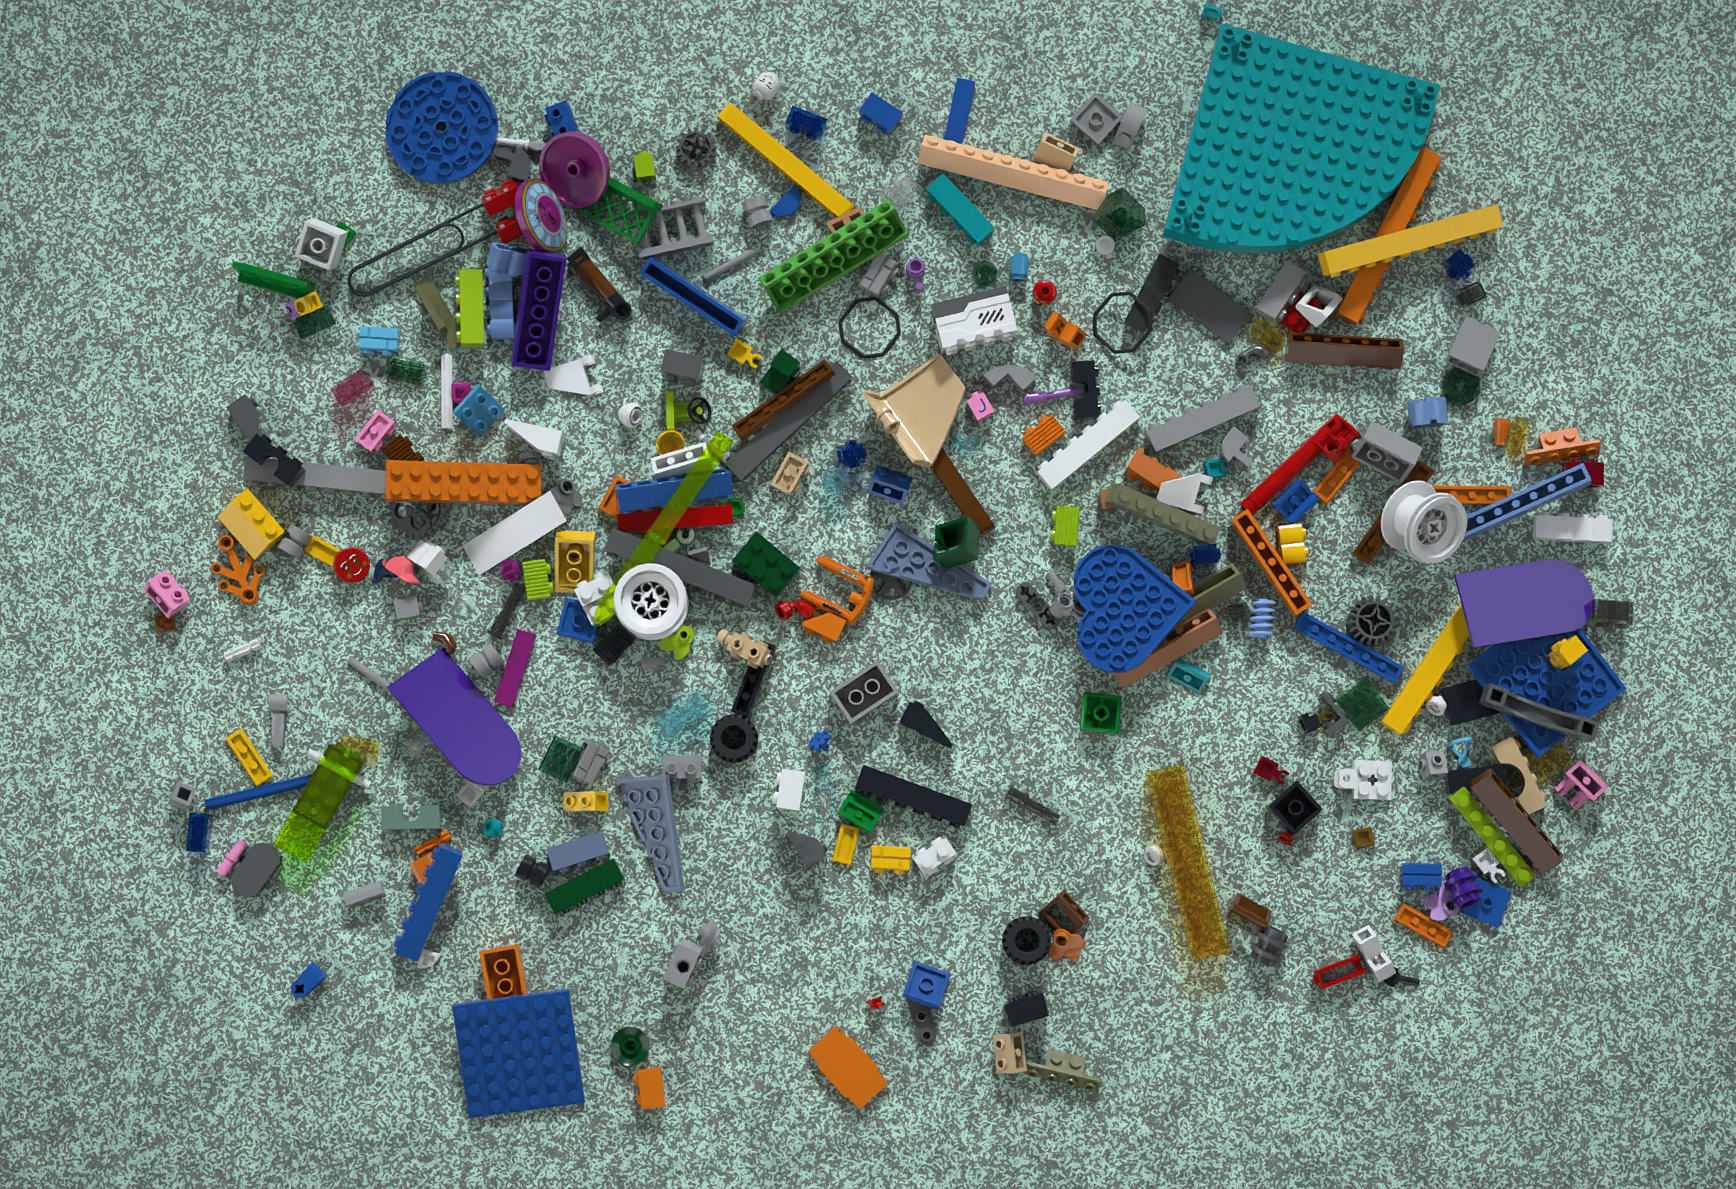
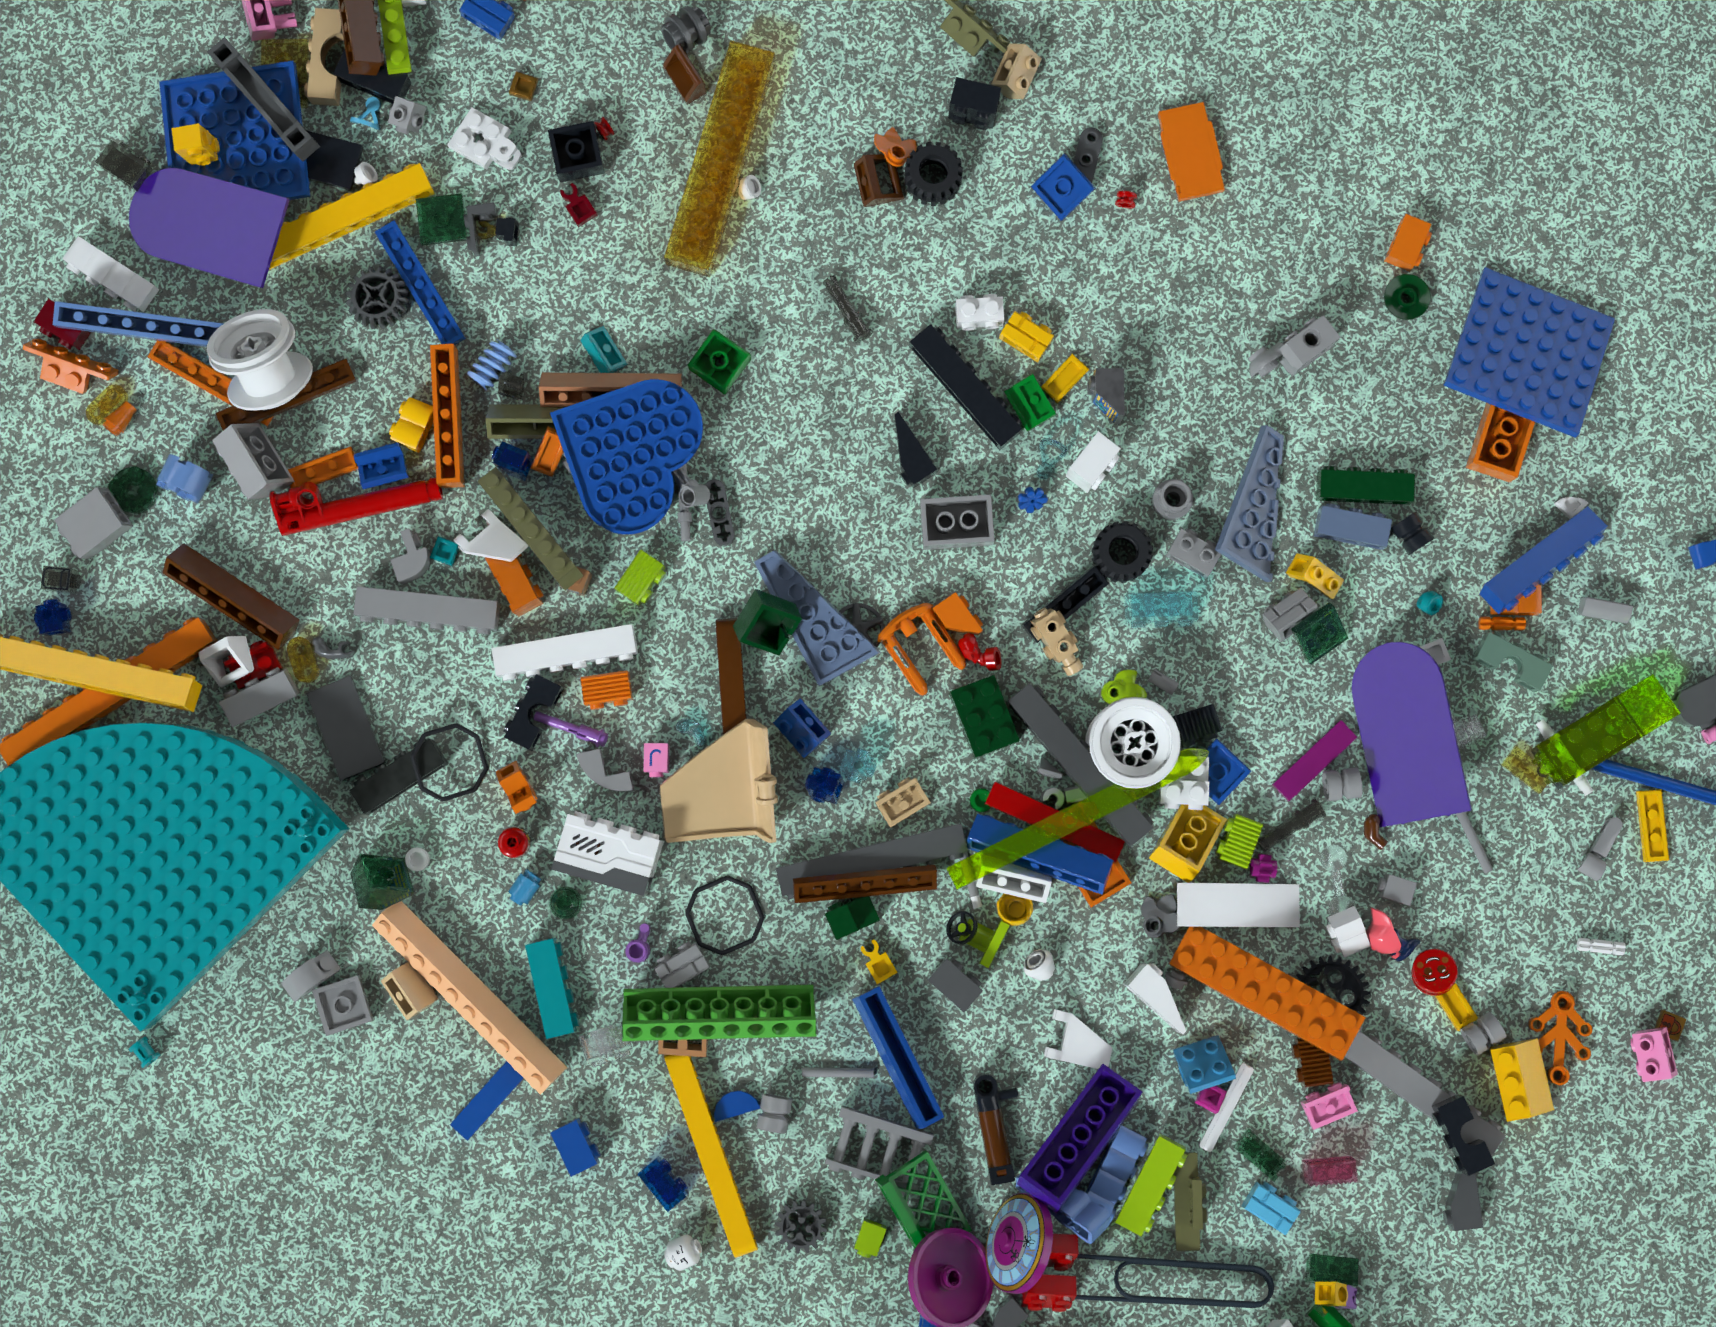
camera: 145 degrees left, 0 degrees up
(711, 791) = (1179, 489): none -> light grey piece

